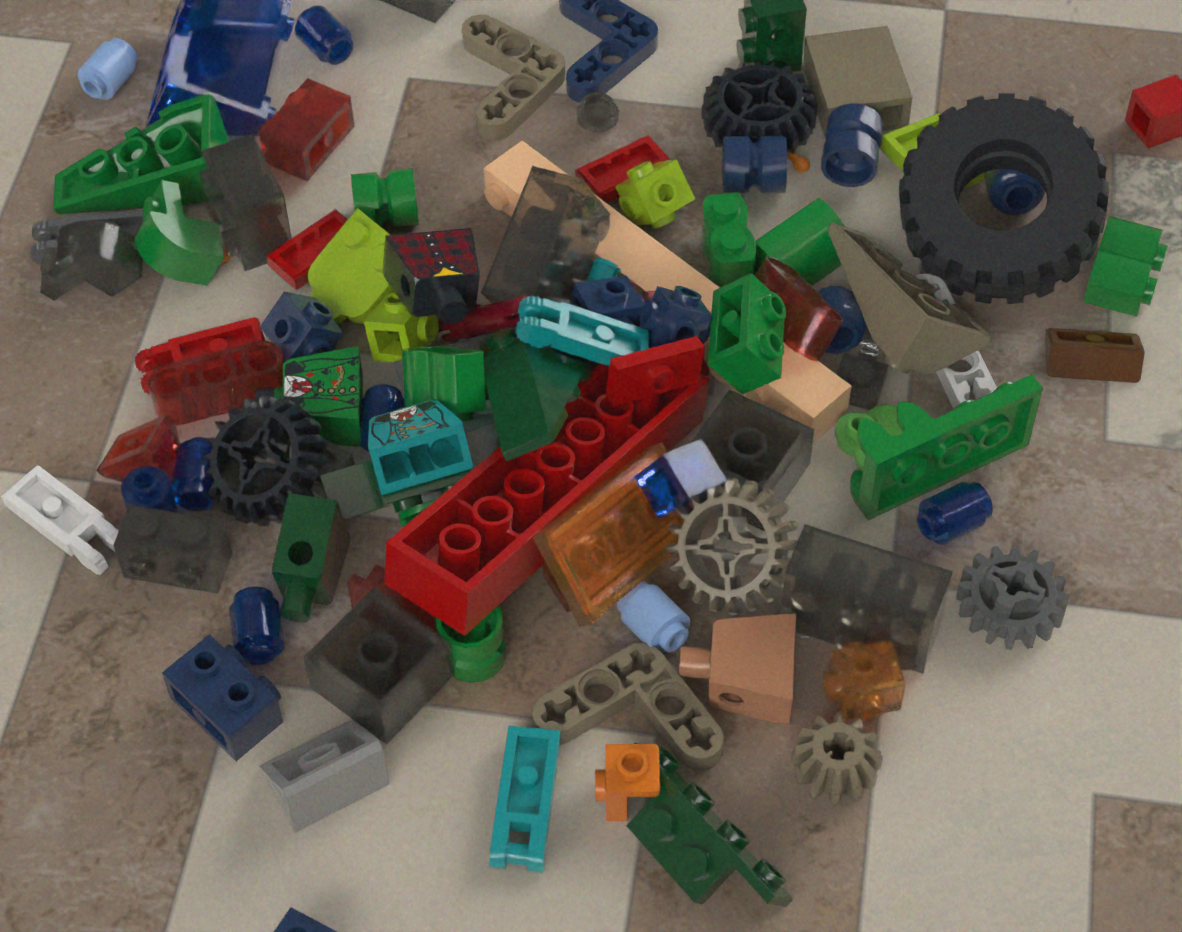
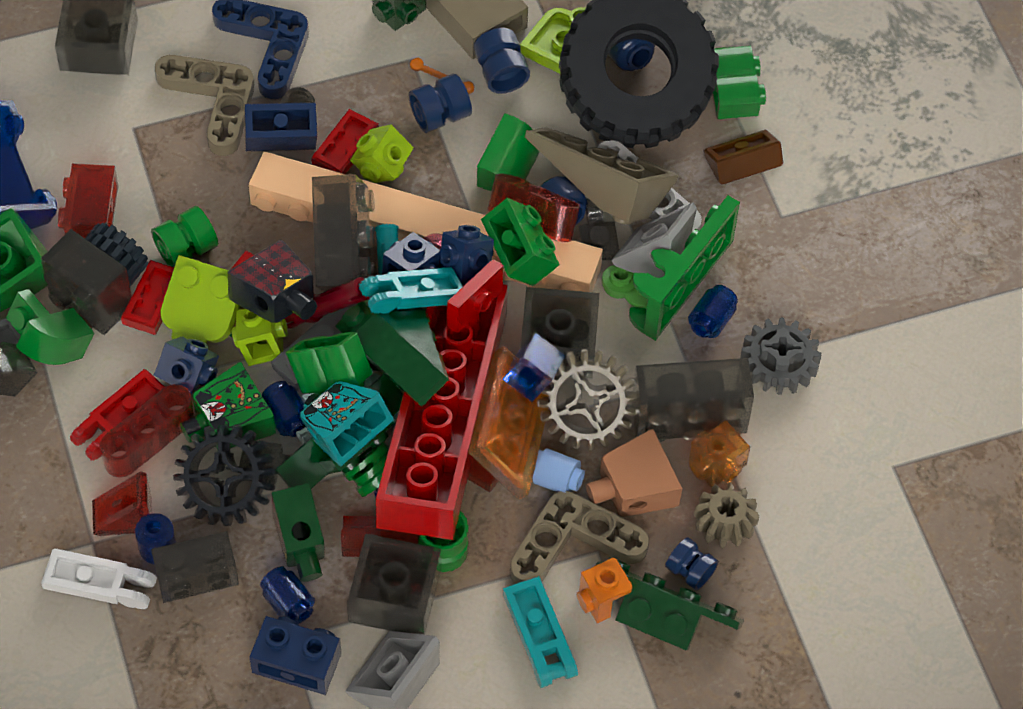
camera: 30 degrees left, 5 degrees up
(188, 479) = (174, 504): clear blue brick -> none
(300, 186) = (119, 248): none -> black wheel
(324, 35) = (51, 119): clear blue brick -> none
(557, 123) = (280, 126): none -> dark blue brick
(726, 238) = (456, 173): green brick -> none
(759, 103) = (401, 45): black gear -> none
(759, 798) = (691, 564): none -> dark blue wheel
(933, 397) = (665, 232): none -> light grey slope

